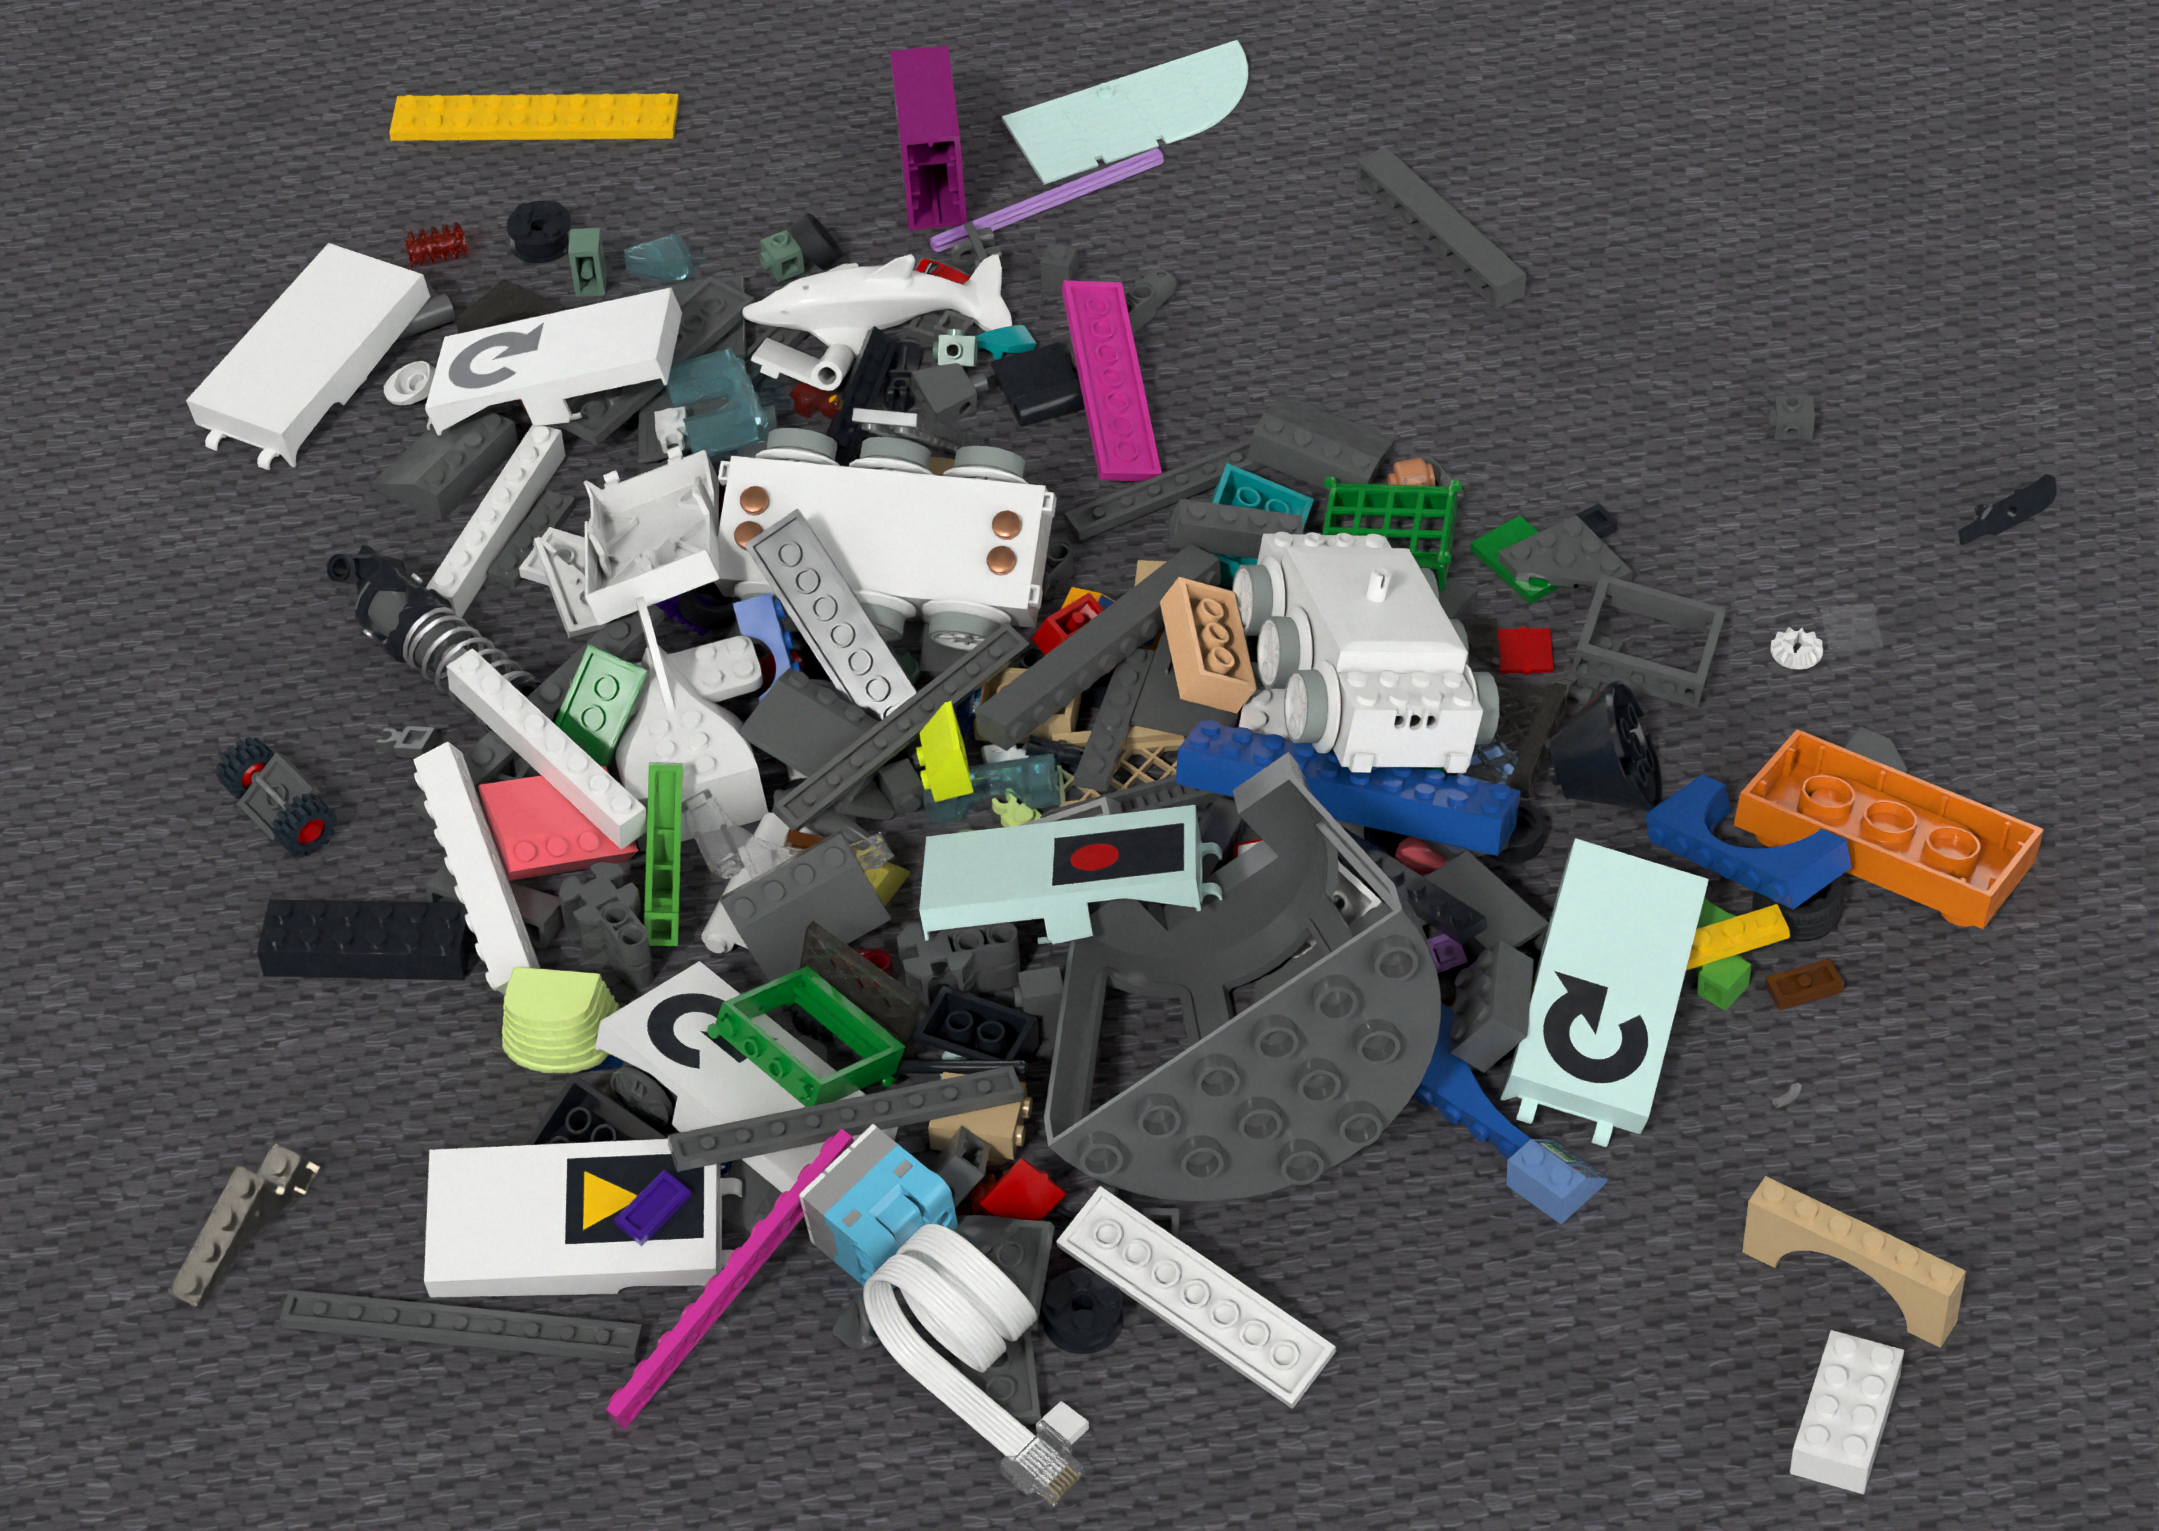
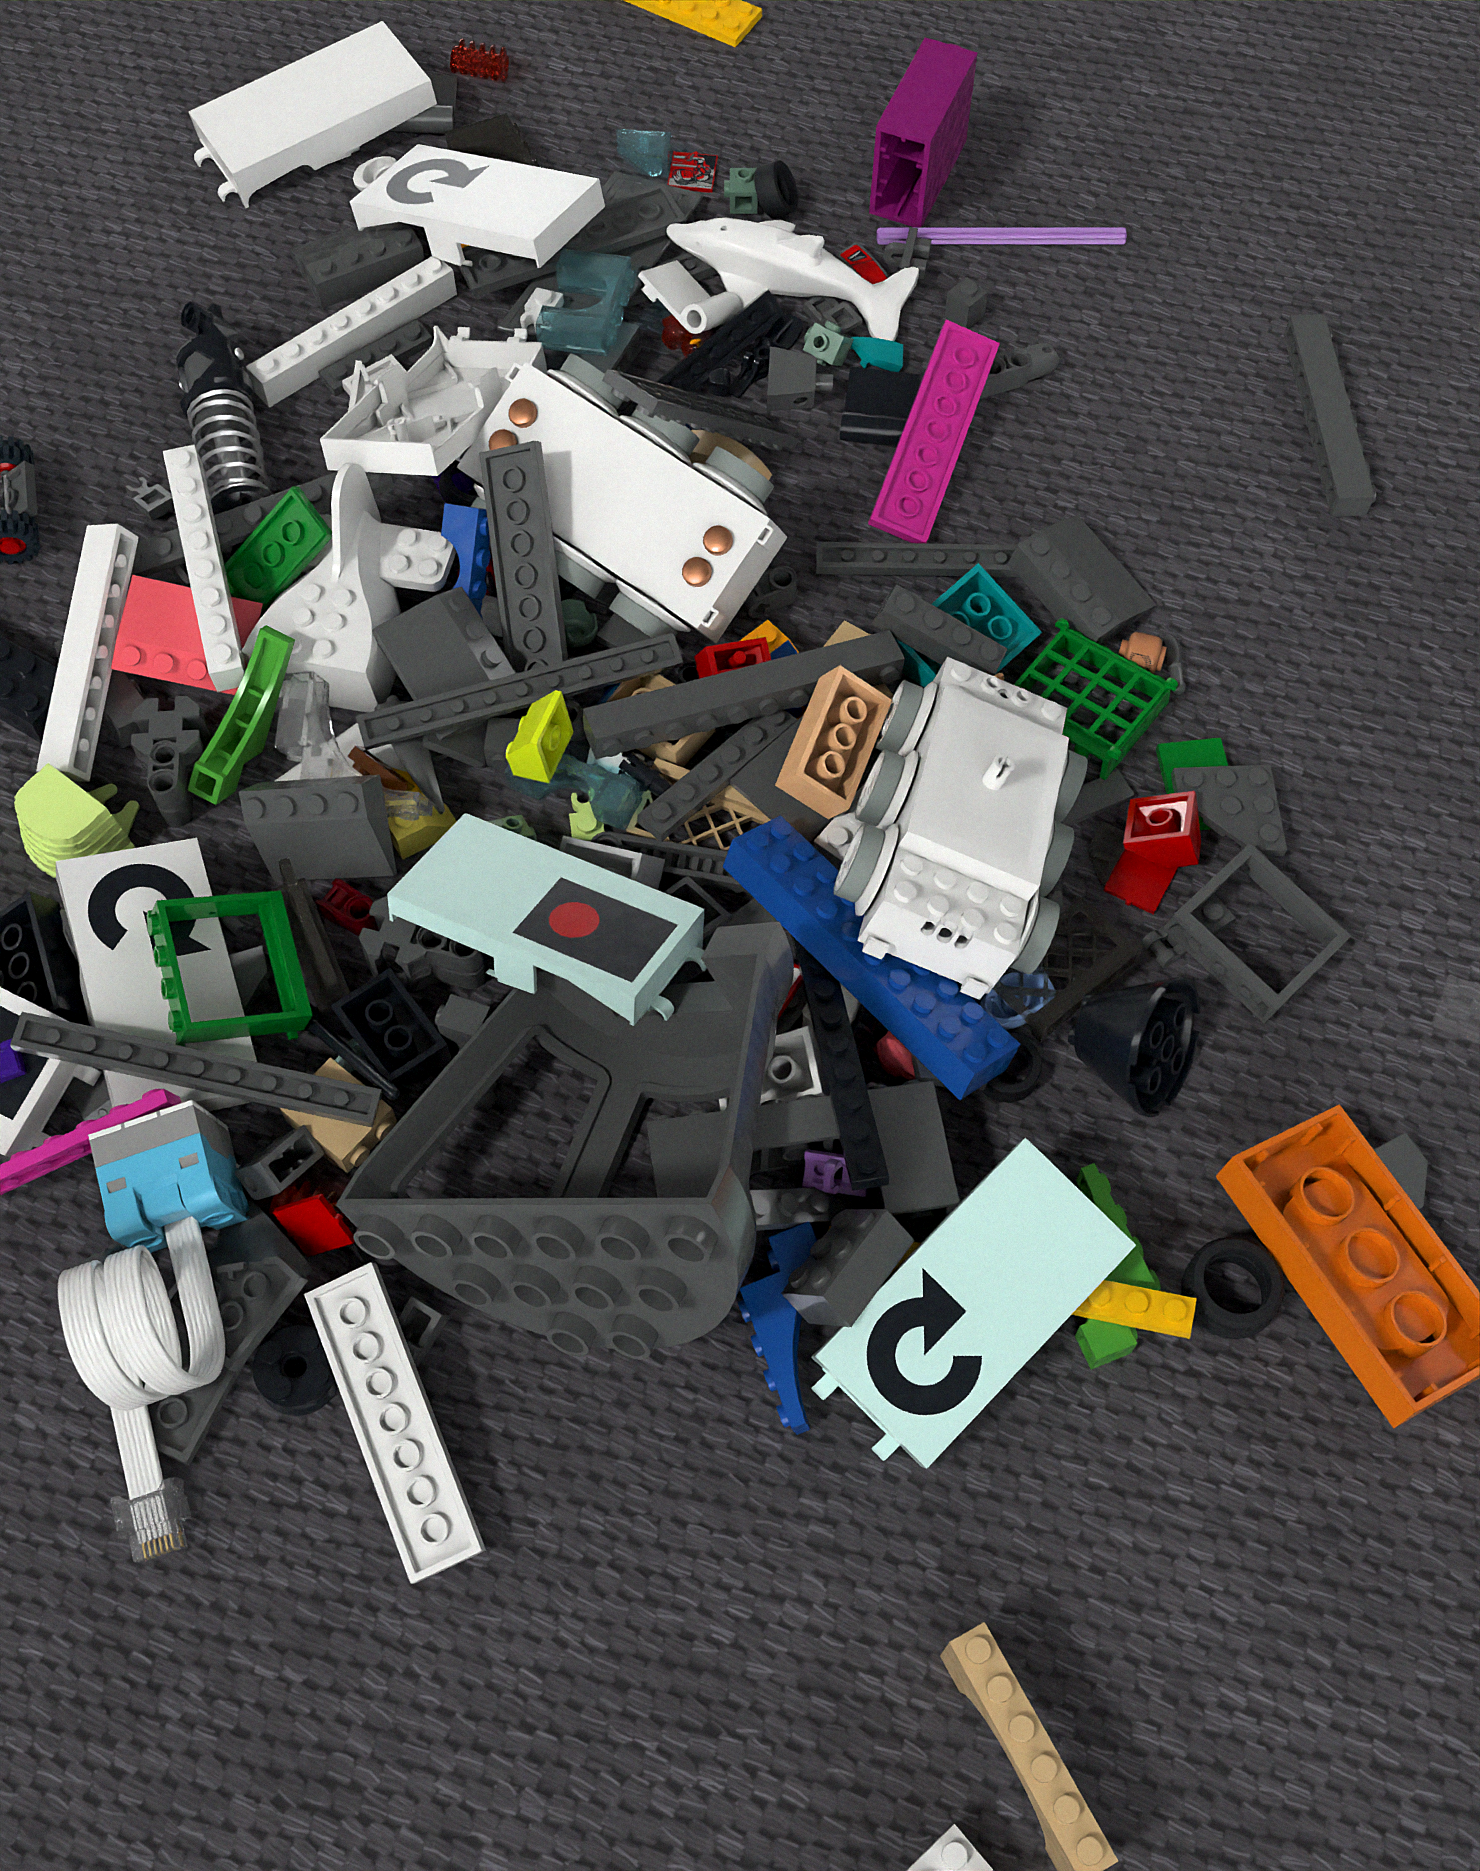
camera: 25 degrees right, 15 degrees up
(539, 231) = (569, 84): black wheel -> none
(587, 262) = (581, 127): sand green brick -> none
(716, 260) = (693, 171): none -> piece
(1066, 1422) = (204, 1481): white tile -> none
(1130, 113) = (1127, 184): light aqua door -> none
(1522, 600) = (1164, 829): none -> red slope
(1552, 1178) = (812, 1470): medium blue slope -> none
(1598, 520) = (1288, 779): black plate -> none
(1781, 873) = (1222, 1271): blue arch -> none
(1789, 1094) = (1099, 1498): light grey leg -> none
(1804, 984) = (1181, 1387): reddish brown plate -> none
(1807, 655) = (1403, 1020): white gear -> none

